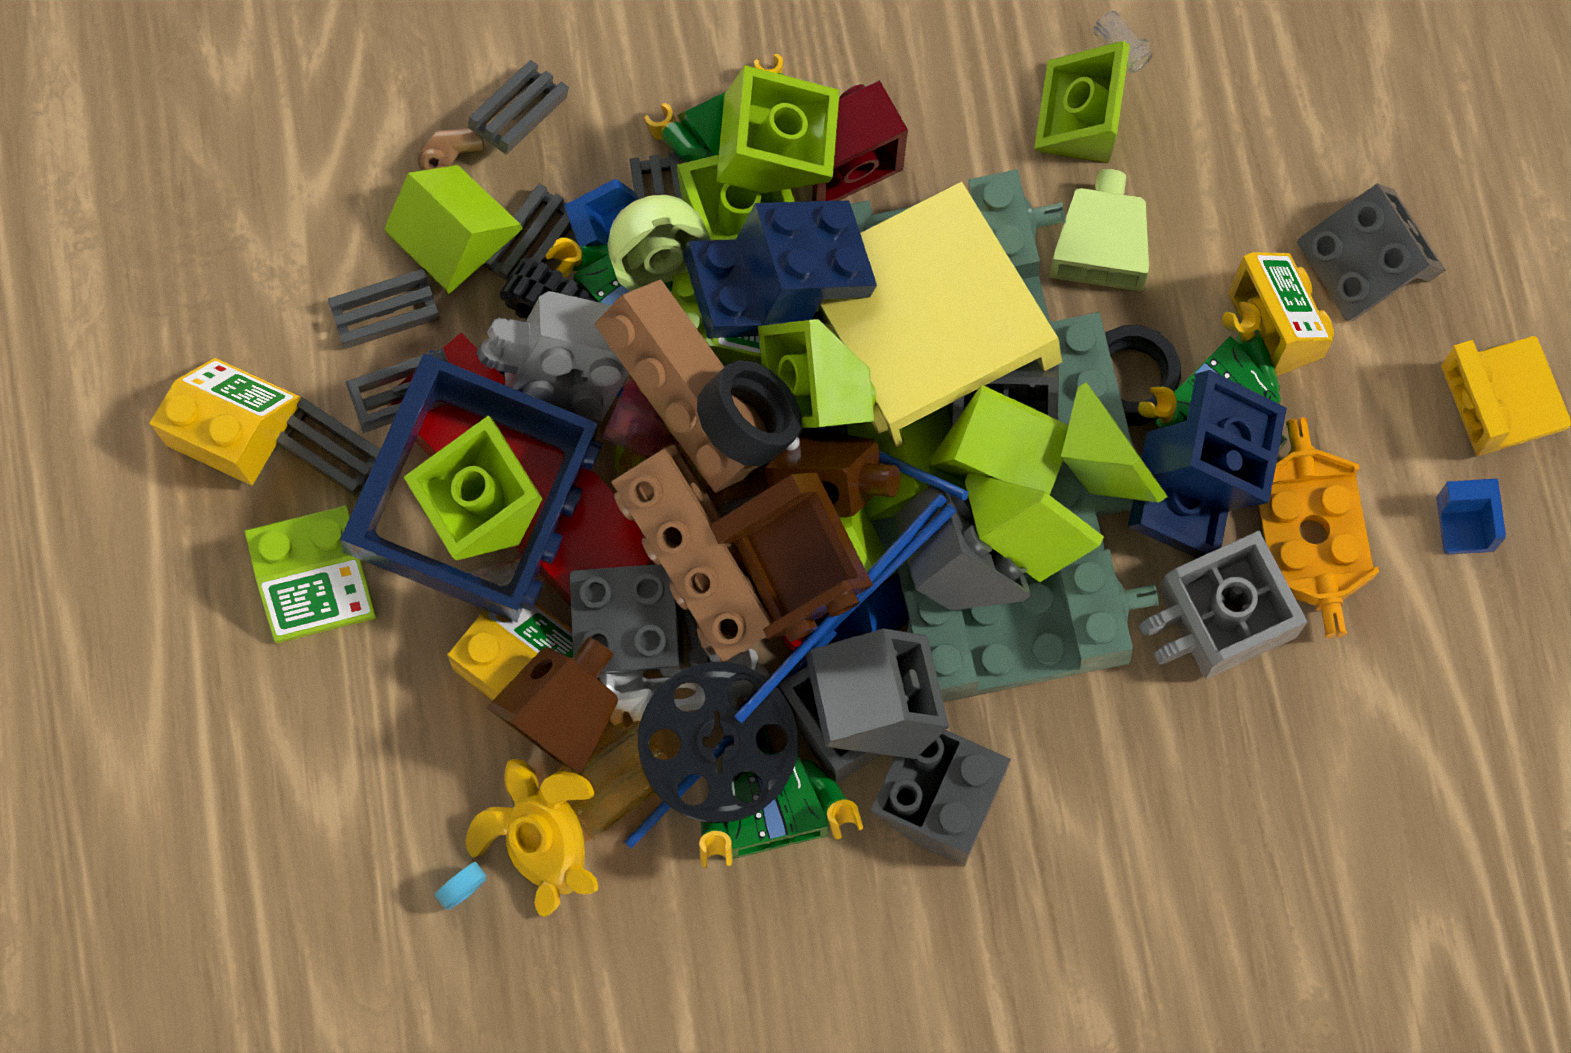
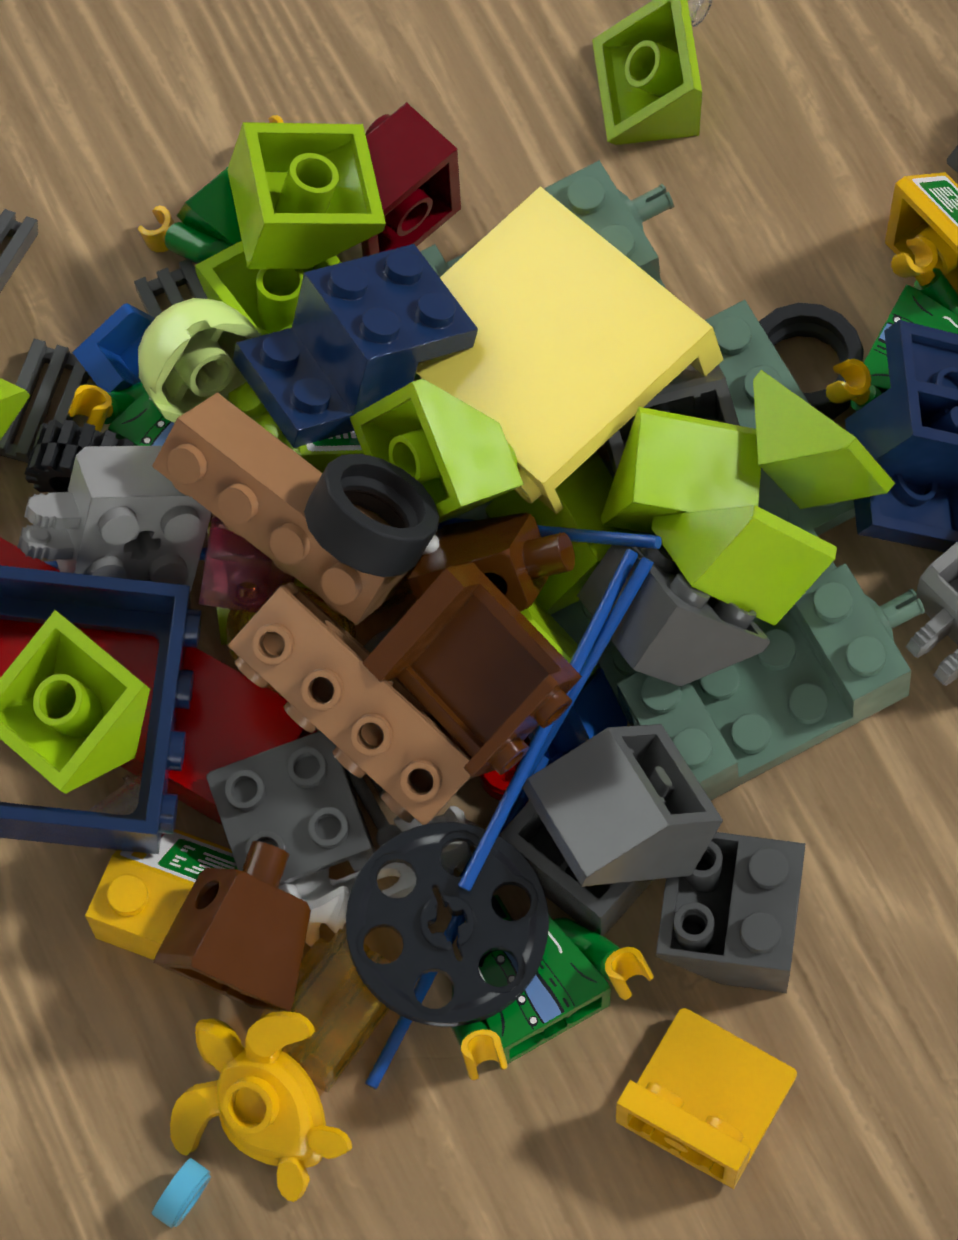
camera: 10 degrees left, 5 degrees down
(878, 929) = (706, 1097): none -> yellow bracket
(1104, 236) = (723, 217): yellowish green torso -> none

